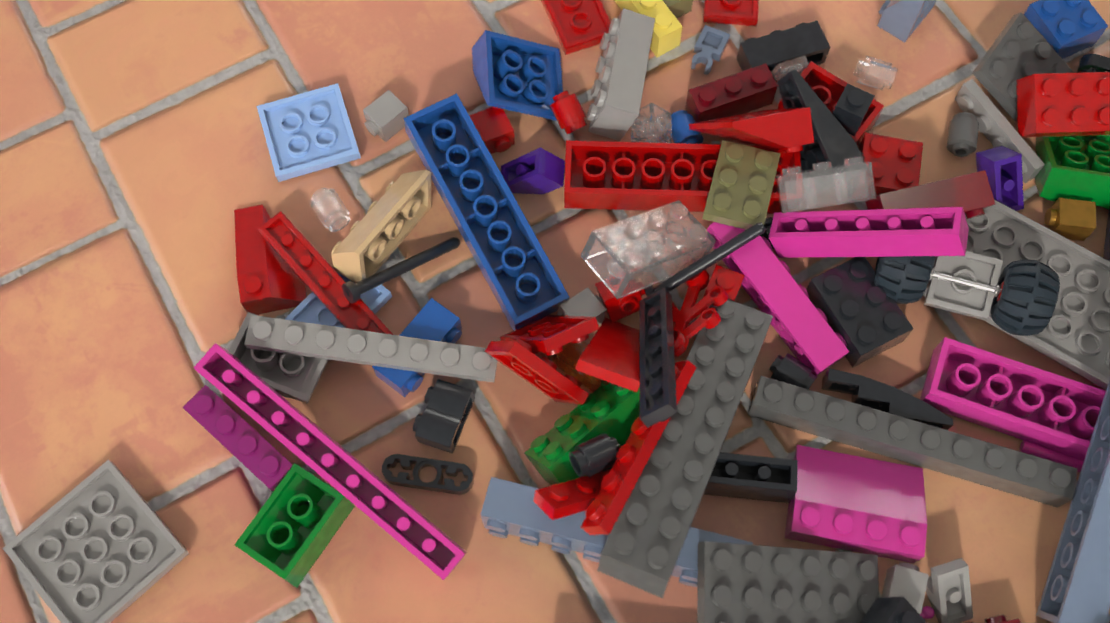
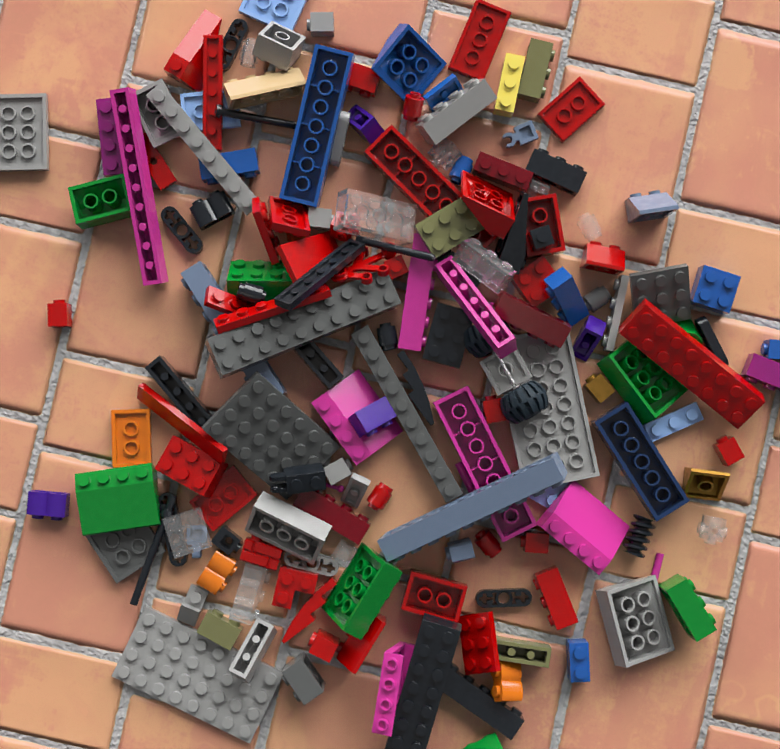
camera: 40 degrees right, 20 degrees up
(304, 209) = (242, 35): none -> black beam
(342, 427) = (160, 171): none -> red tile
(359, 170) = (278, 45): none -> light grey brick
(522, 200) = (340, 138): none -> light grey beam
(584, 74) = (442, 91): none -> blue plate
(881, 478) = (372, 416): none -> dark purple brick
(926, 88) = (603, 259): none -> red slope
(937, 146) = (565, 296): none -> blue brick
(985, 574) = (379, 496): none -> red brick
(996, 340) = (492, 409): none -> red brick

